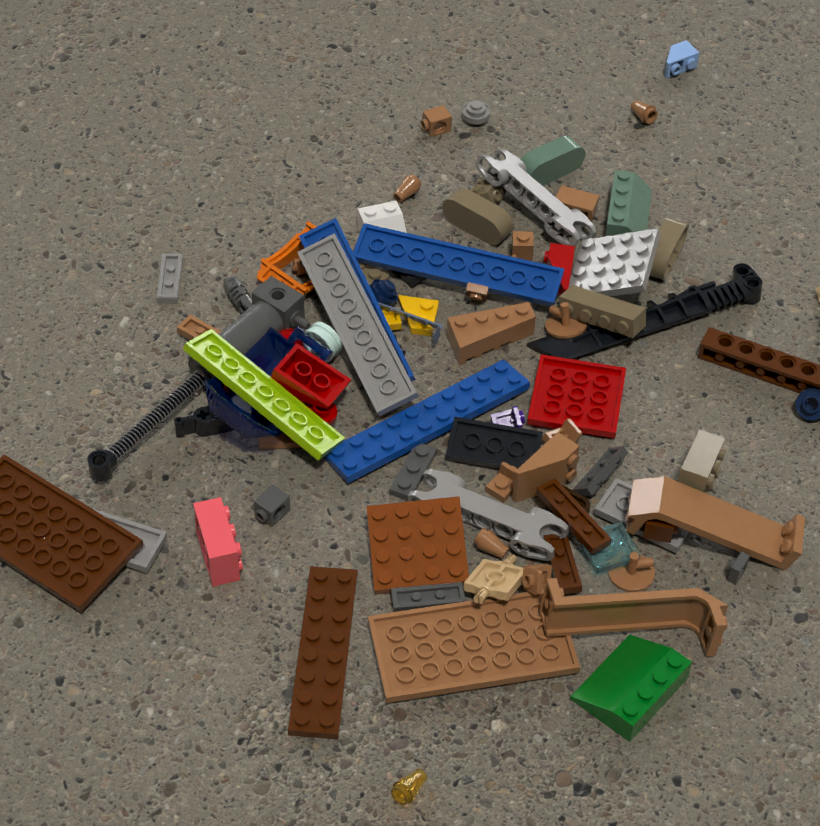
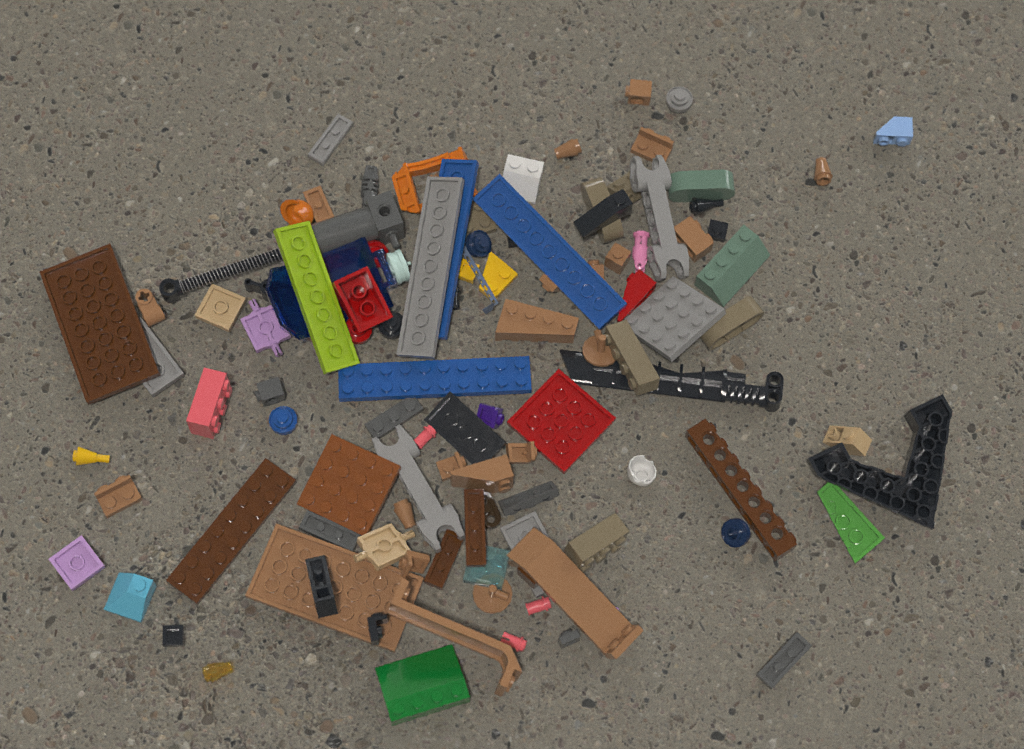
camera: 30 degrees right, 20 degrees up
(87, 491) = (150, 309): none -> medium nougat piece
(112, 660) = (84, 456): none -> yellow cone
(163, 460) = (220, 307): none -> tan plate
(175, 342) = (296, 211): none -> orange helmet
(175, 679) = (117, 496): none -> medium nougat bracket
(175, 765) = (76, 563): none -> lavender plate
(223, 455) = (264, 329): none -> lavender plate
(259, 764) = (130, 596): none -> medium azure slope
(303, 524) = (283, 420): none -> blue plate
(336, 778) = (173, 636): none -> black plate
(353, 396) = (391, 328): none -> black plate
(458, 466) = (428, 433): none -> coral pin
(466, 644) = (321, 586): none -> black slope
(473, 148) = (650, 144): none -> medium nougat bracket
(489, 206) = (604, 213): none -> black slope
(540, 236) = (639, 251): none -> bright pink piece
(546, 653) = (374, 630): none -> black bracket
(562, 177) = (701, 205): none -> black cone
(592, 187) = (717, 230): none -> black plate
(685, 399) = (641, 471): none -> white hair
(688, 552) = (538, 605): none -> coral pin

